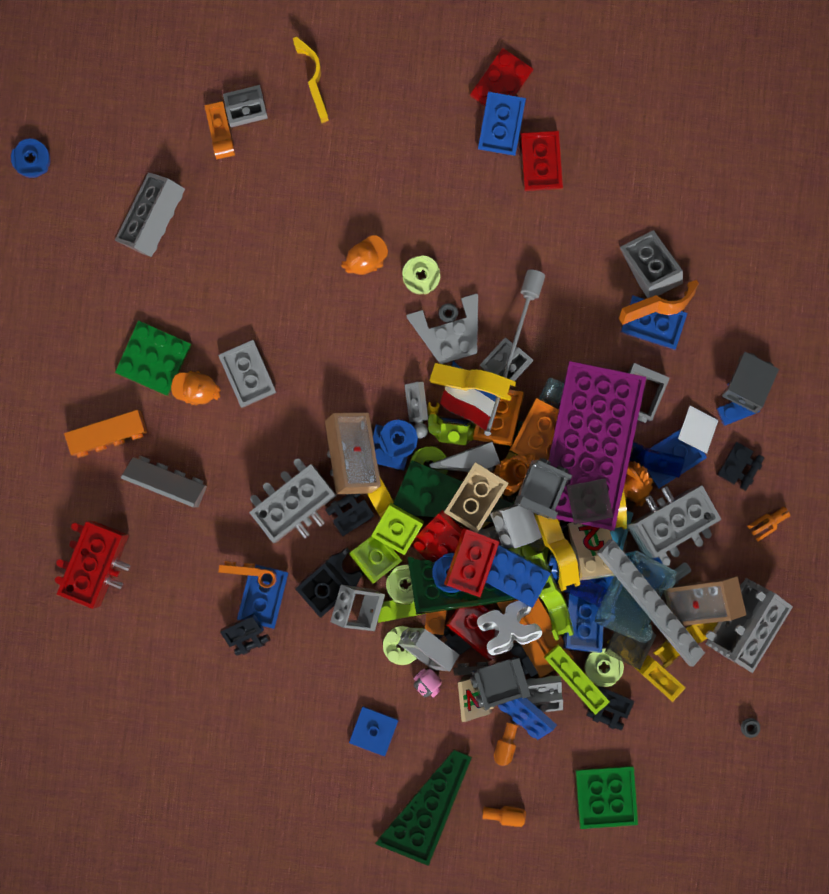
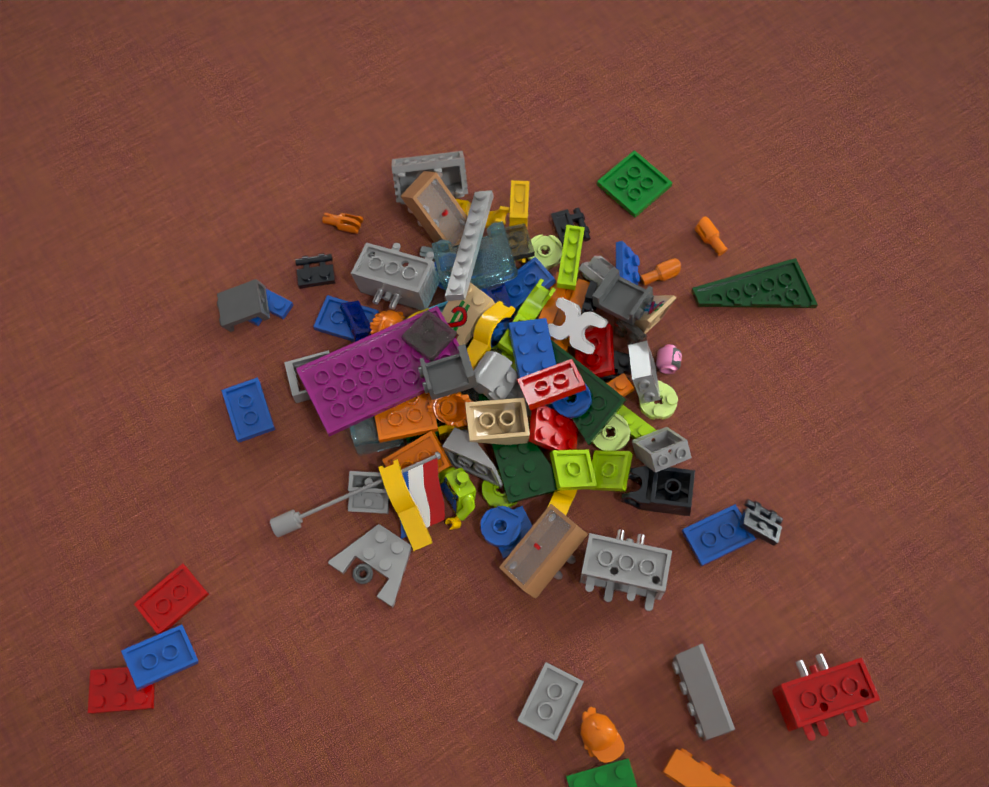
camera: 125 degrees left, 20 degrees down
(248, 569) = (710, 559): orange plate -> none
(353, 517) = (595, 515): black plate -> none
(366, 256) = (365, 681): orange hair -> none
(373, 731) = (739, 371): blue plate -> none
(416, 265) = (337, 615): yellowish green plate -> none
(417, 407) = (461, 536): light grey plate -> none
(652, 264) = (199, 445): light grey slope -> none
(658, 305) = (229, 411): orange piece -> none
(698, 429) = (310, 317): white sticker -> none
(756, 727) = (501, 129): dark grey plate -> none

